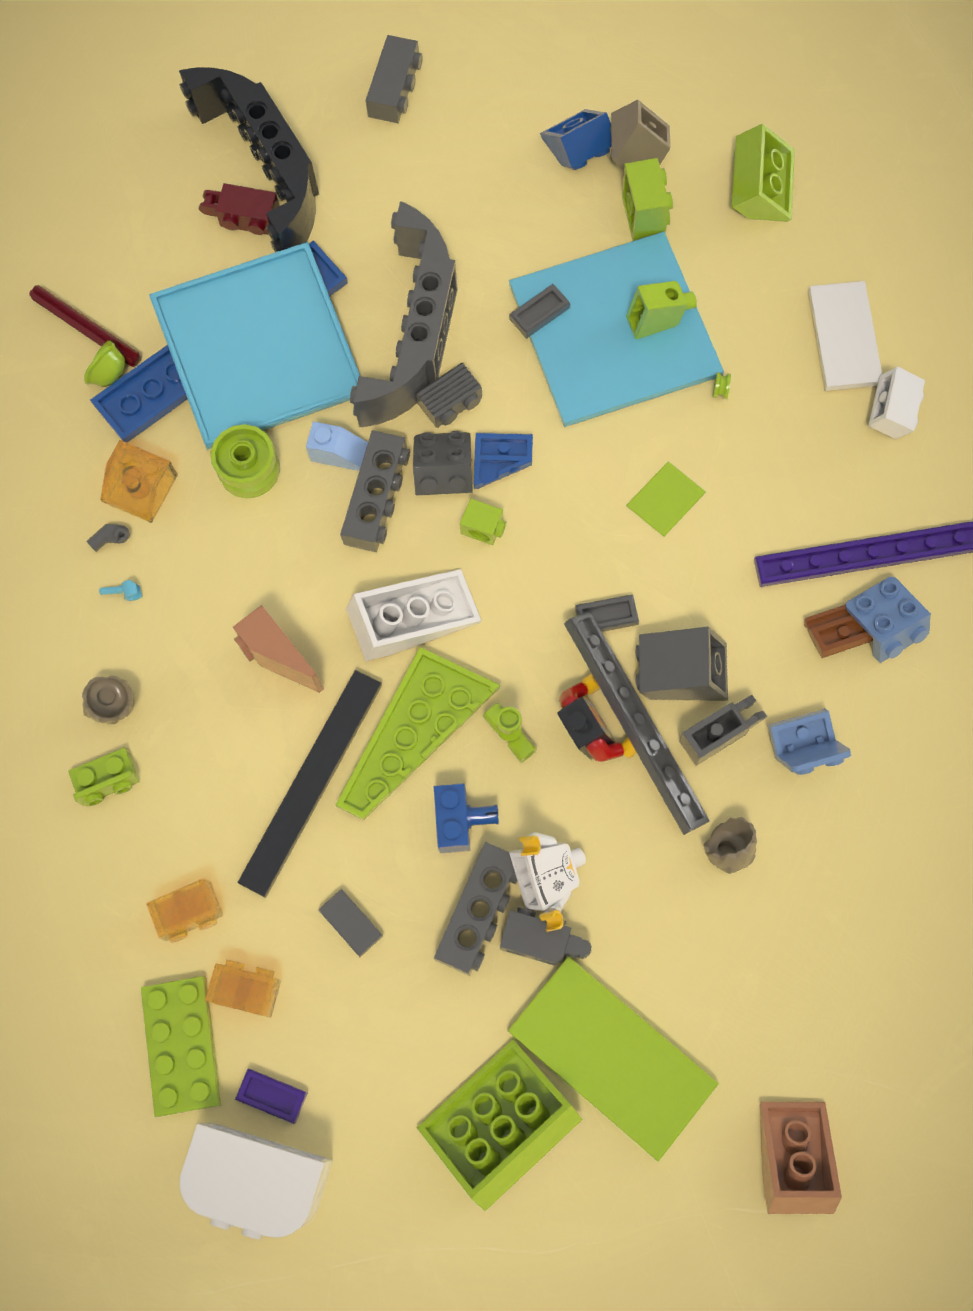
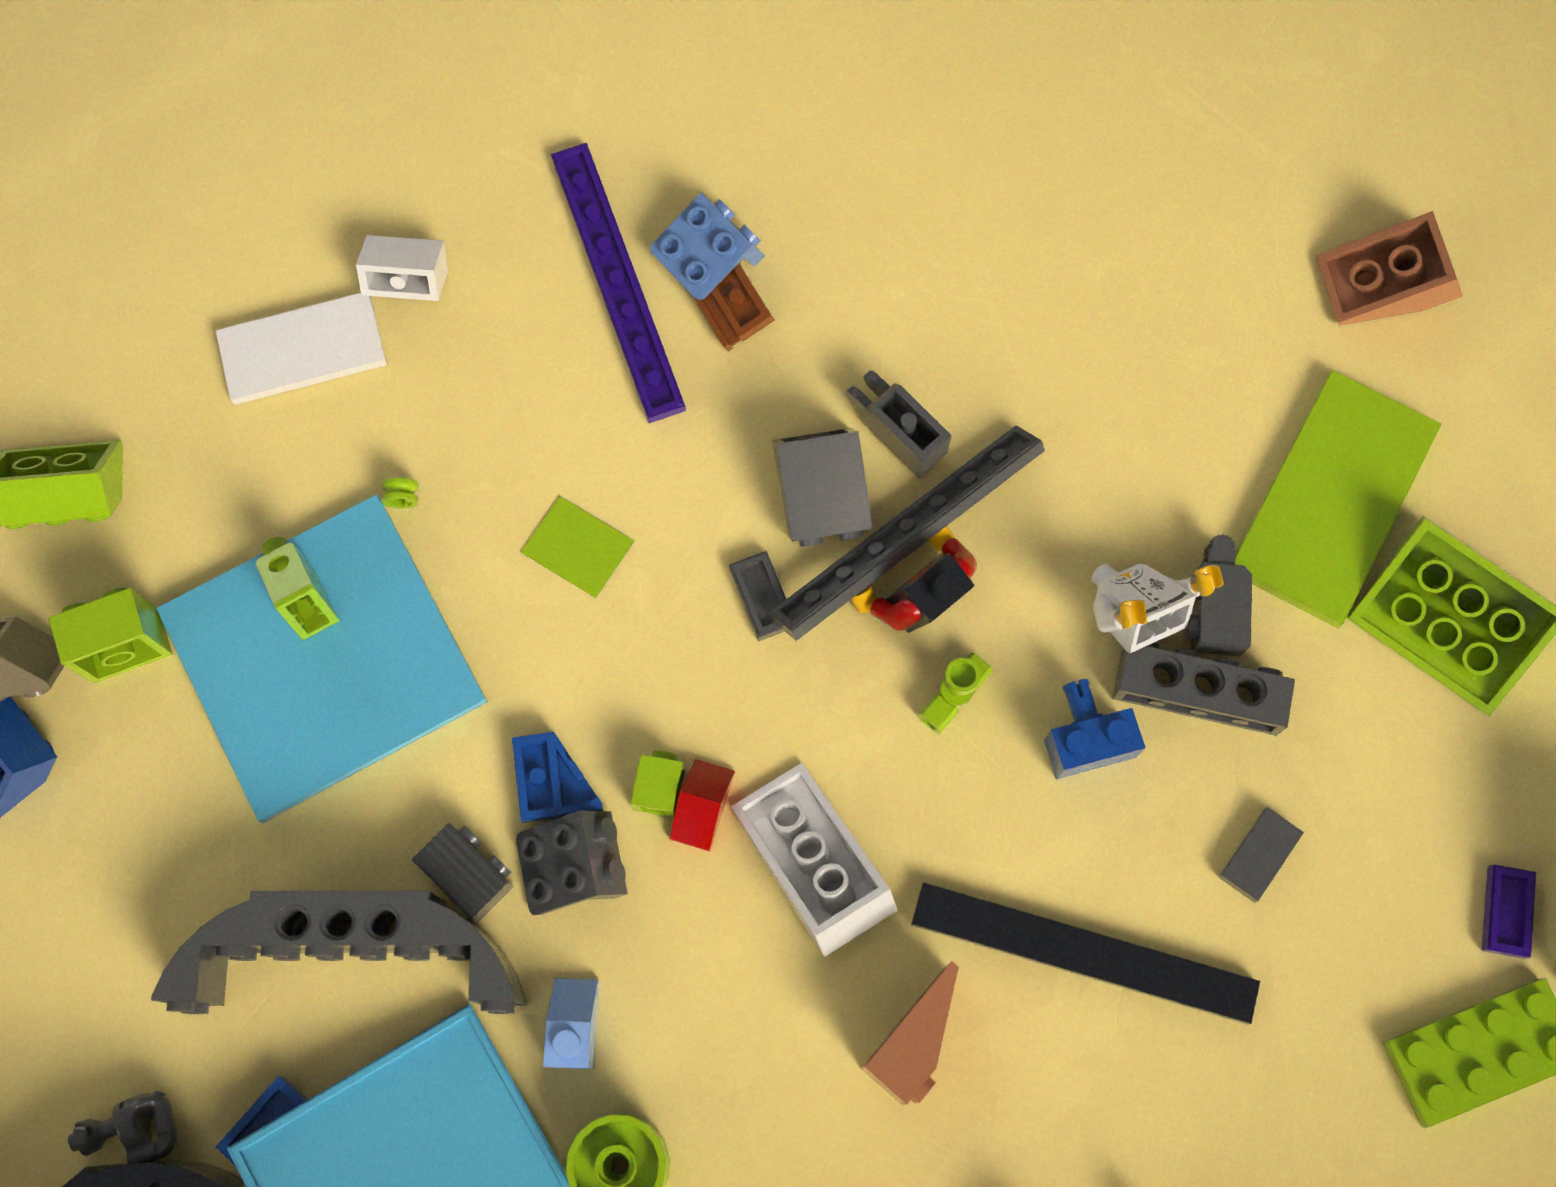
camera: 105 degrees left, 0 degrees up
(185, 910) = (1310, 1088): clear yellow brick -> none
(243, 989) = (1391, 978): clear yellow brick -> none
(335, 199) = (132, 1125): none -> dark grey piece
(379, 450) = (565, 959): dark grey brick -> none
(422, 715) = (964, 818): lime wing -> none
(466, 549) = (701, 805): none -> red slope
(539, 311) = (308, 763): dark grey tile -> none
(732, 845) = (1046, 389): dark tan hair -> none
(807, 742) = (900, 318): medium blue bracket -> none

